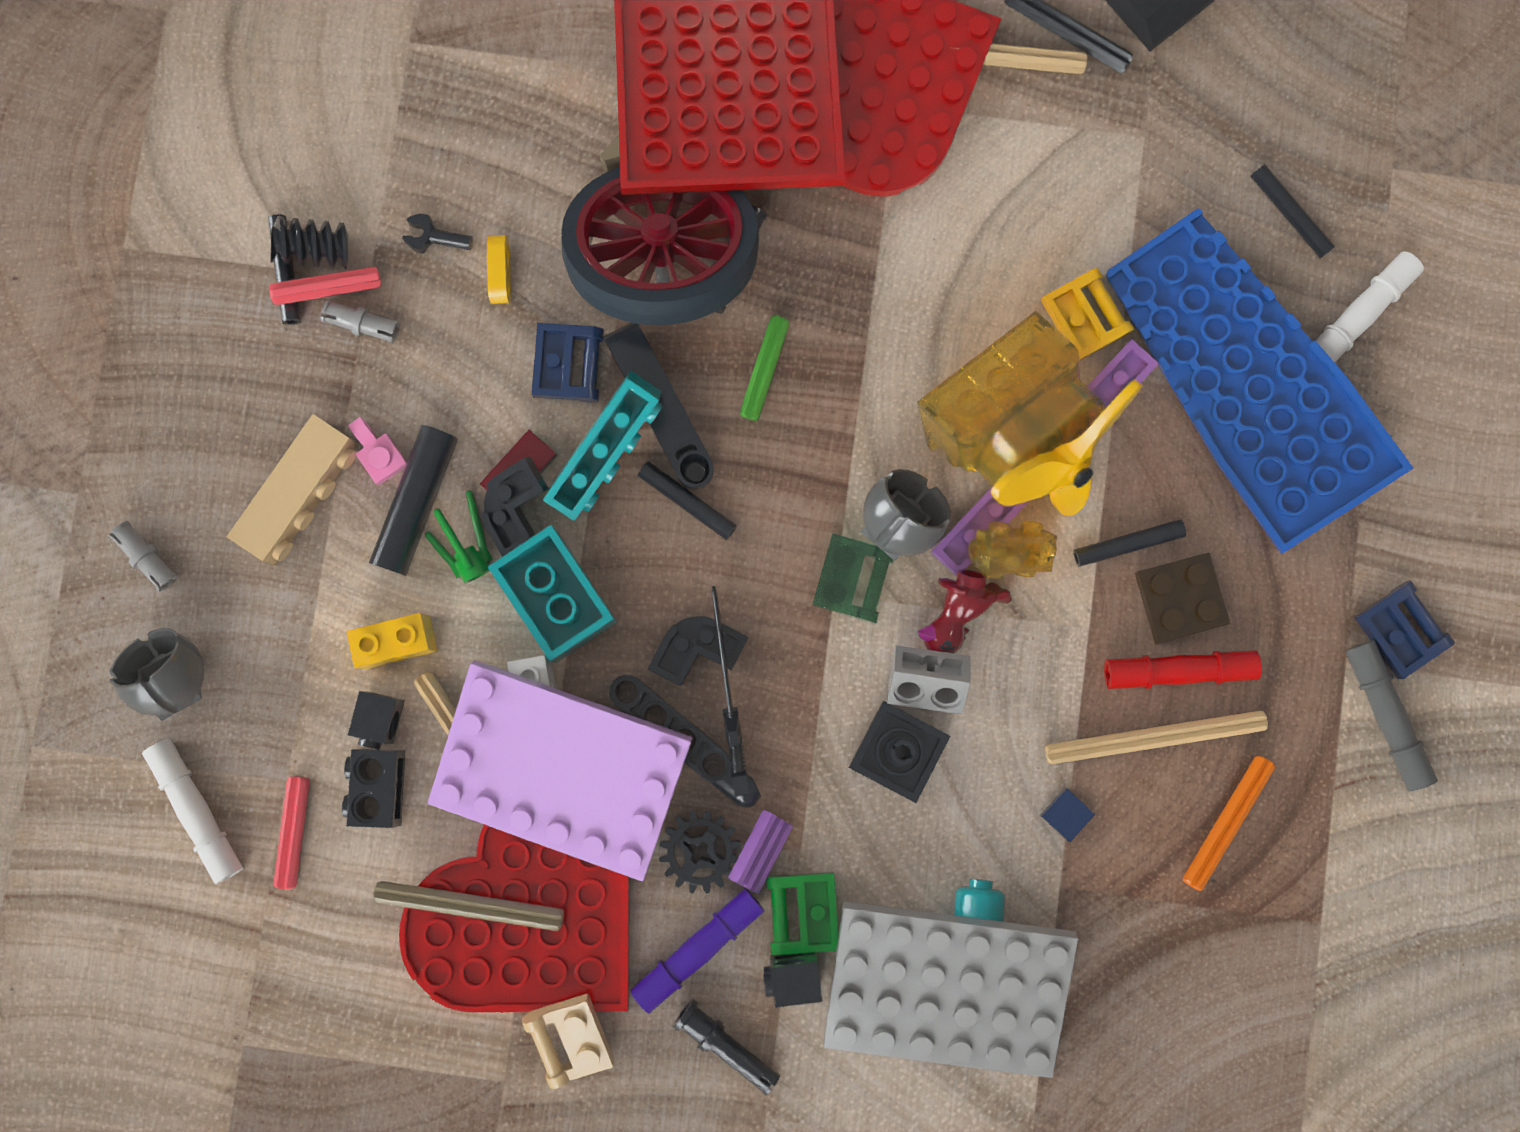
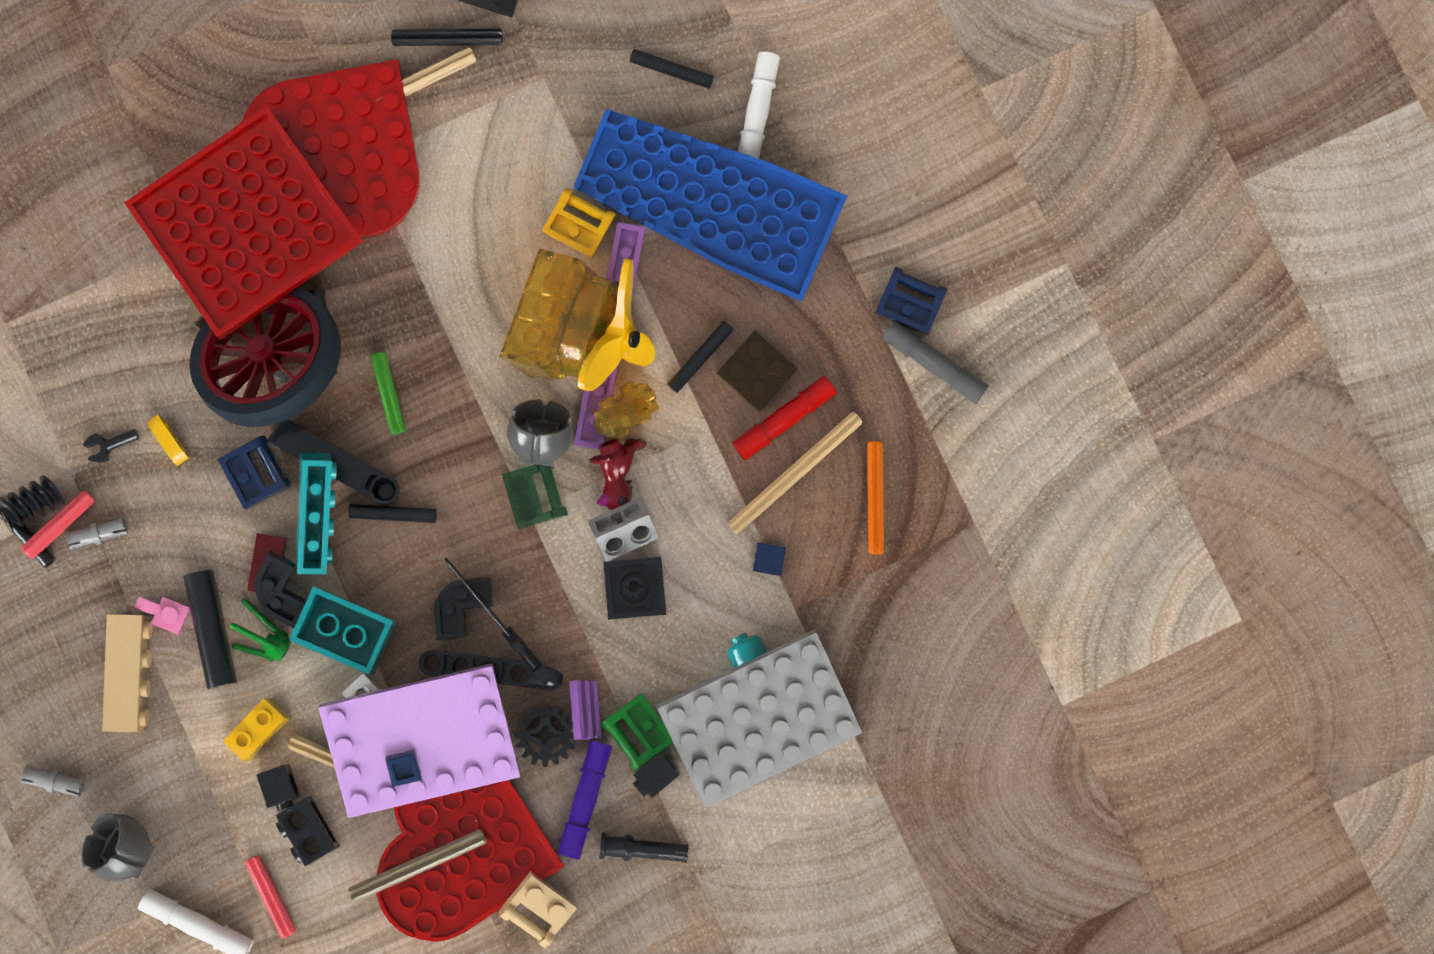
camera: 35 degrees left, 0 degrees up
(521, 790) = (403, 768): none -> dark blue tile

